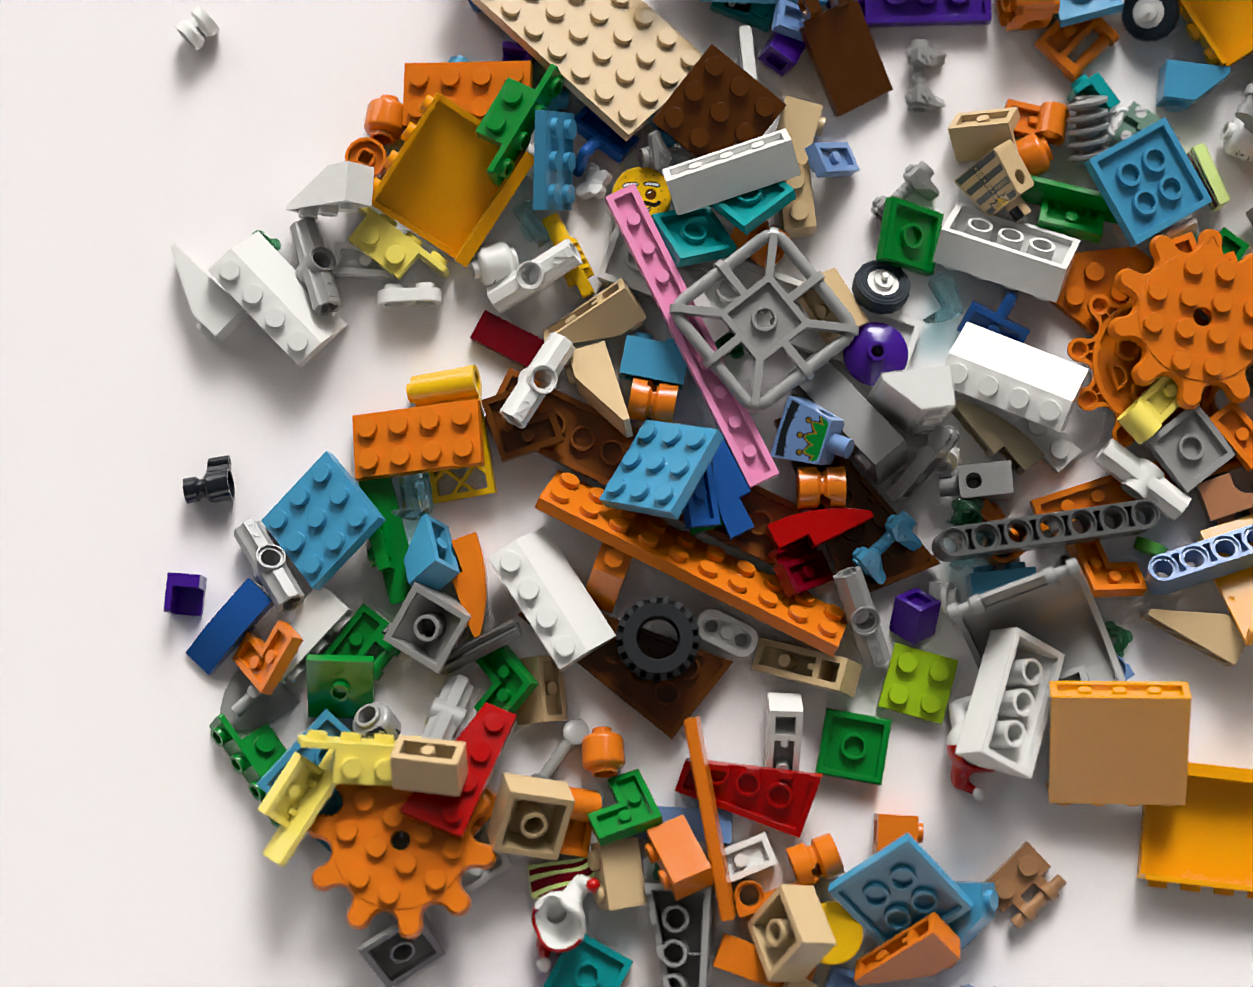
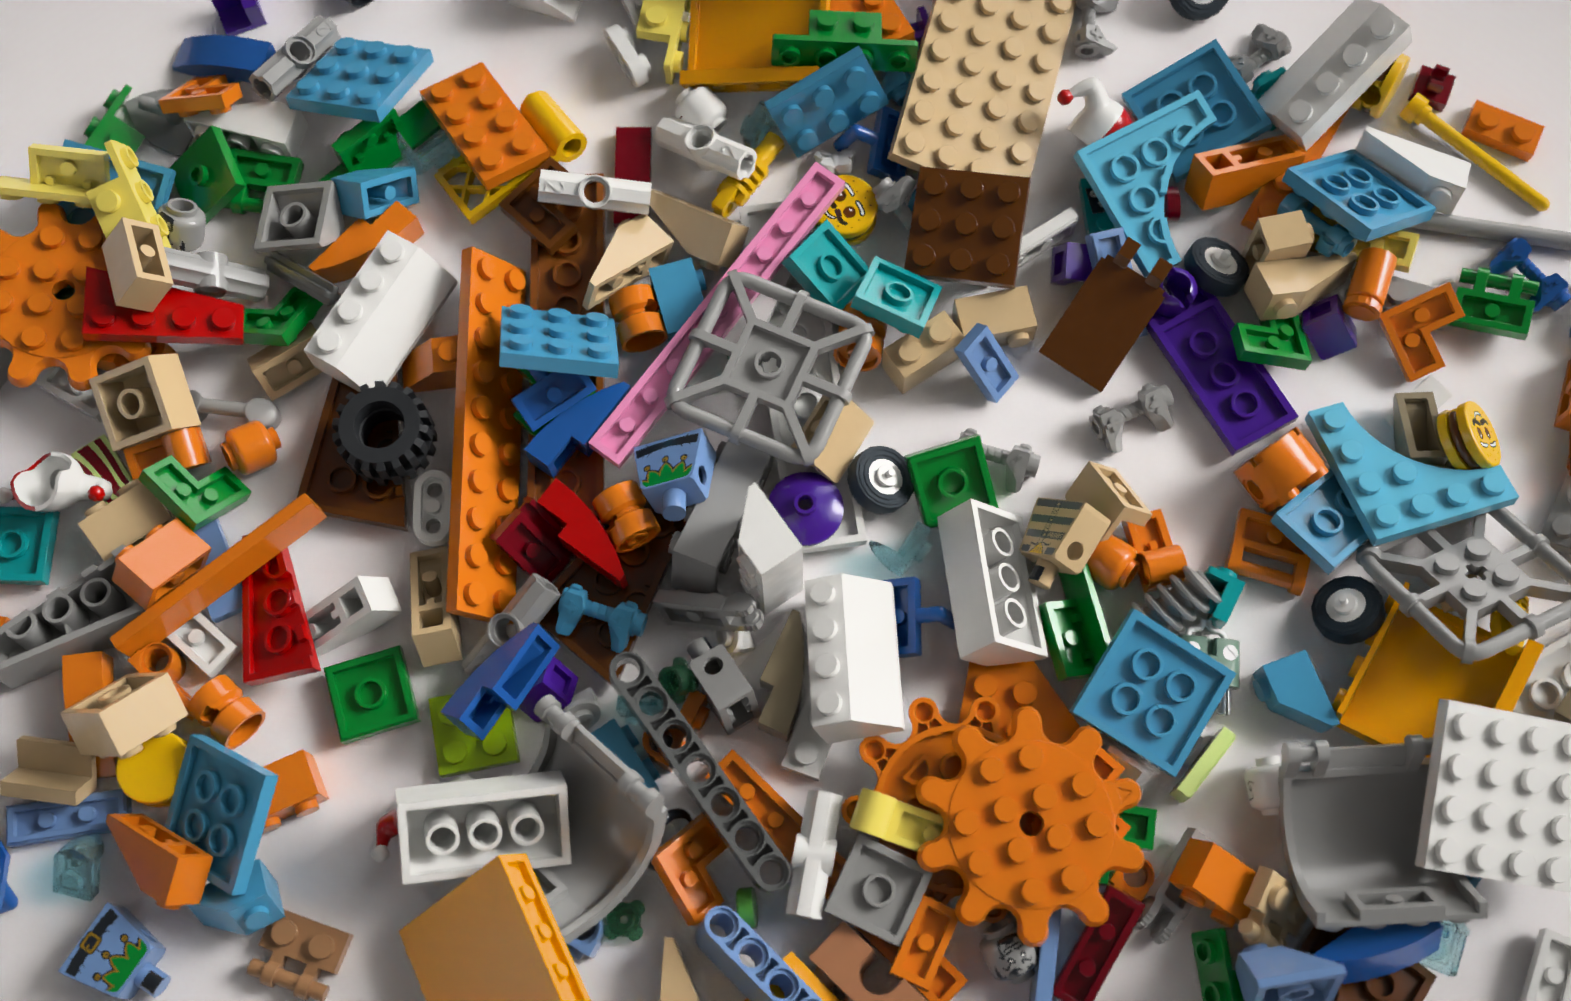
camera: 65 degrees right, 10 degrees down
(732, 171) = (908, 262): white panel -> none
(904, 642) = (501, 681): none -> blue slope

